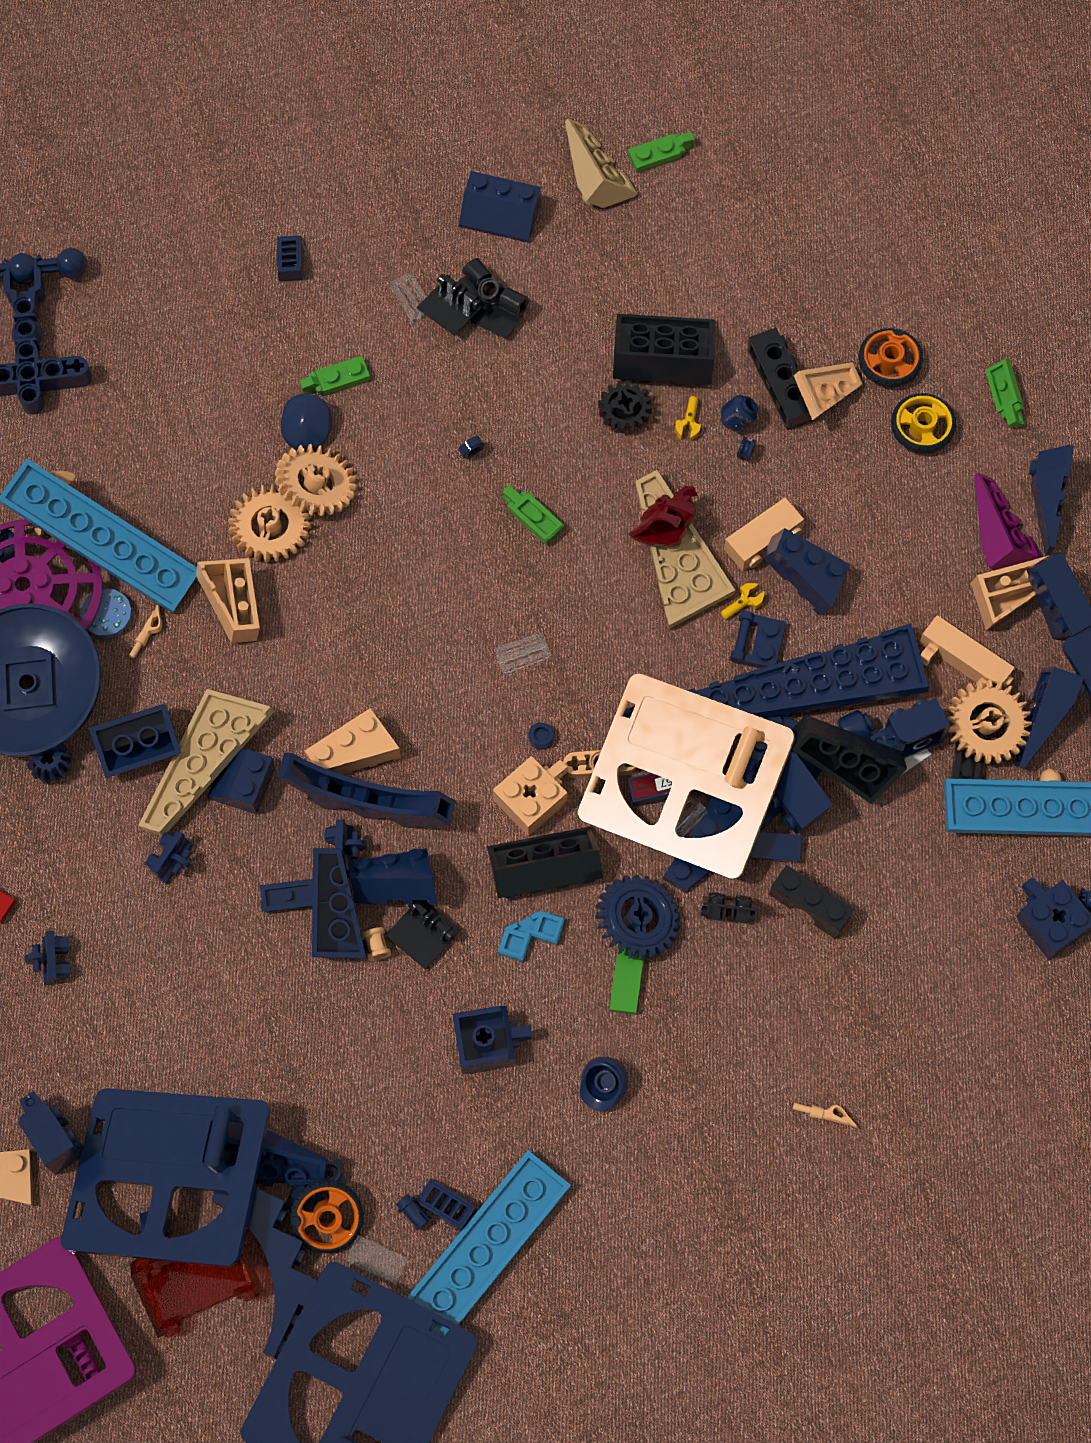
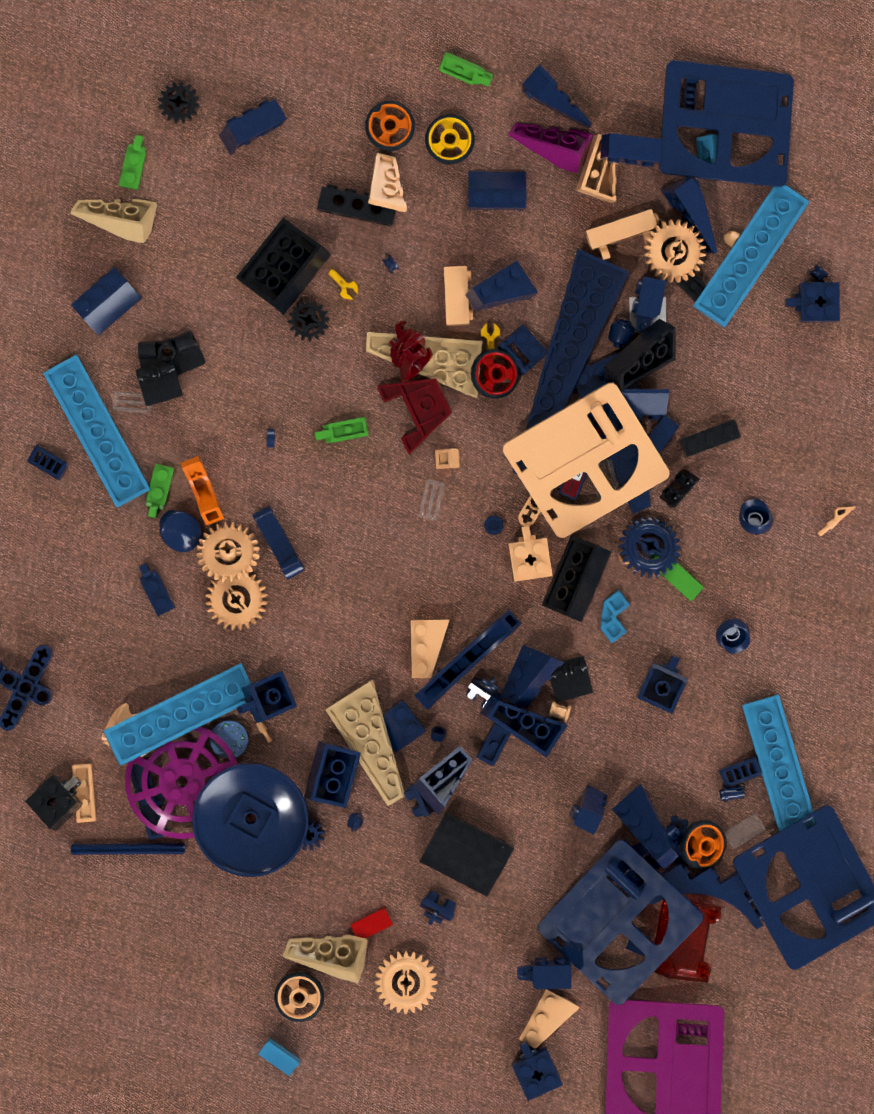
camera: 55 degrees left, 20 degrees up
(97, 802) = (355, 821): none -> dark blue plate
(138, 949) = (466, 853): none -> black slope
(164, 619) = (260, 704): none -> dark blue hinge
(210, 858) = (441, 780): none -> dark blue wedge
(224, 439) = (155, 590): none -> dark blue hinge
(232, 596) = (276, 656): light nougat wedge -> none
(259, 828) = (438, 734): none -> dark blue hinge
(279, 1048) = (589, 810): none -> dark blue wedge
(305, 1123) = (644, 822): none -> dark blue wedge
(350, 545) = (278, 542): none -> dark blue beam
(355, 281) = (97, 431): none -> dark azure plate
(358, 426) = (202, 490): none -> orange arch
(580, 640) = (447, 458): none -> light nougat slope
(620, 579) = (426, 406): none -> dark red wing
(719, 605) = (511, 373): none -> red wheel
(739, 413) = (364, 252): dark blue head -> none
(754, 151) = (187, 104): none -> black gear
(760, 1014) = (755, 517): none -> dark blue hat
(786, 227) = (252, 125): none -> dark blue wedge
(905, 505) = (496, 190): none -> dark blue slope

